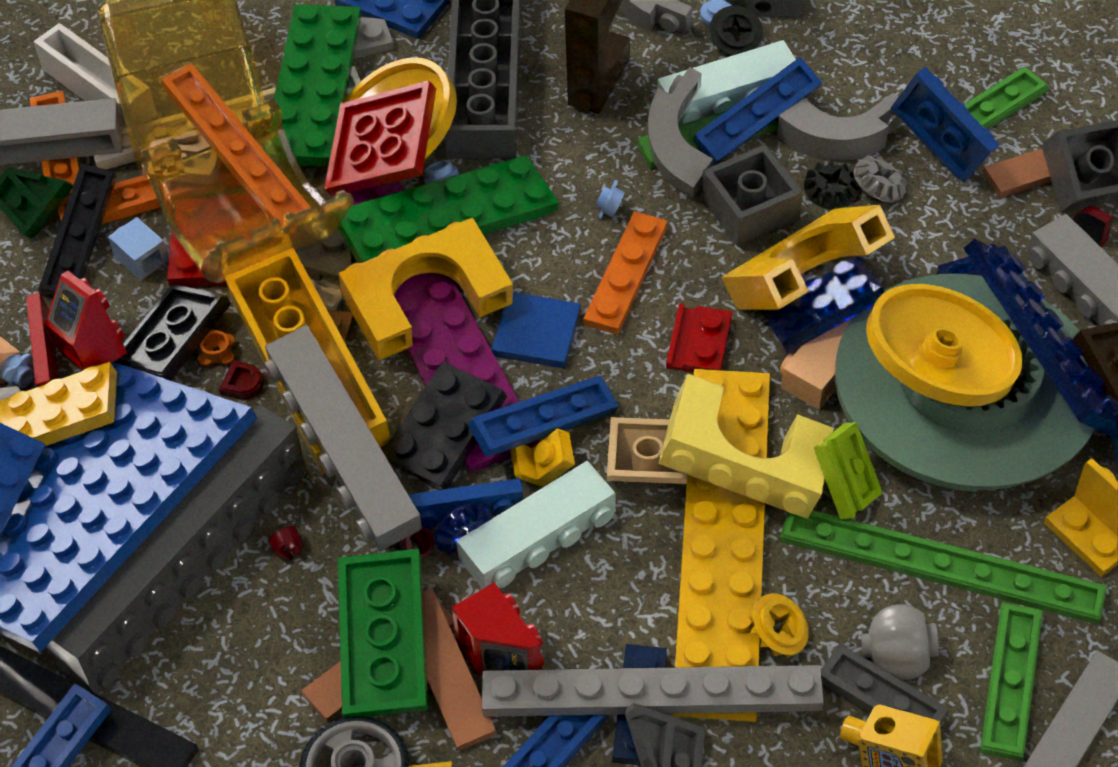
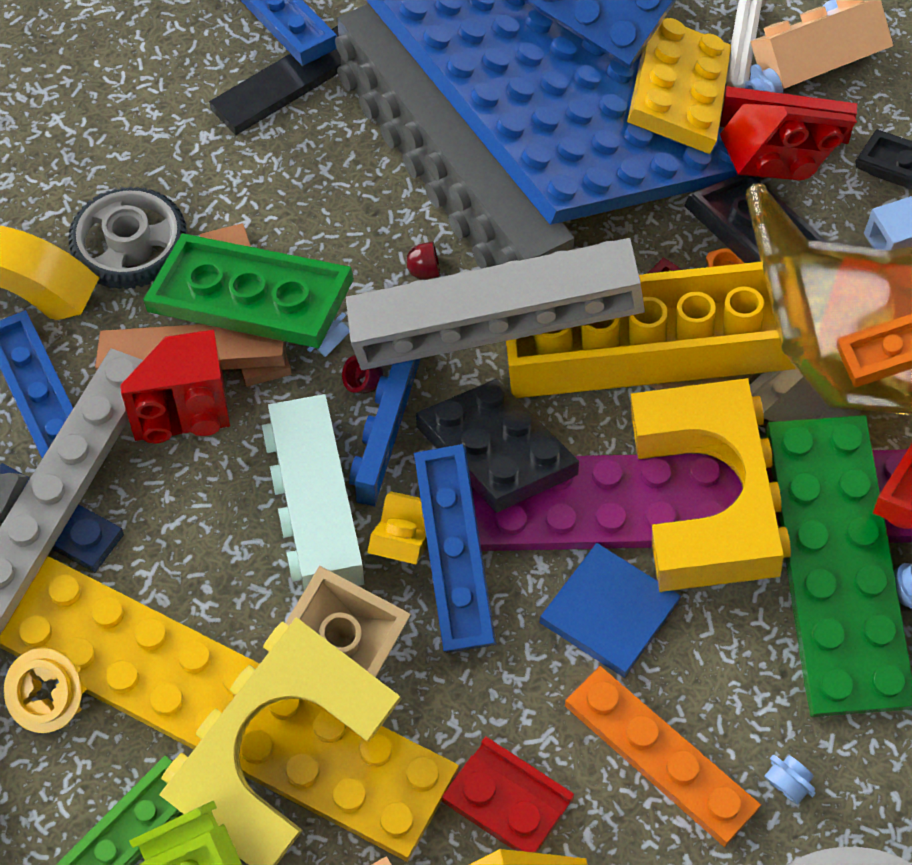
camera: 110 degrees right, 5 degrees up
(460, 523) = (344, 413): clear blue gear -> none

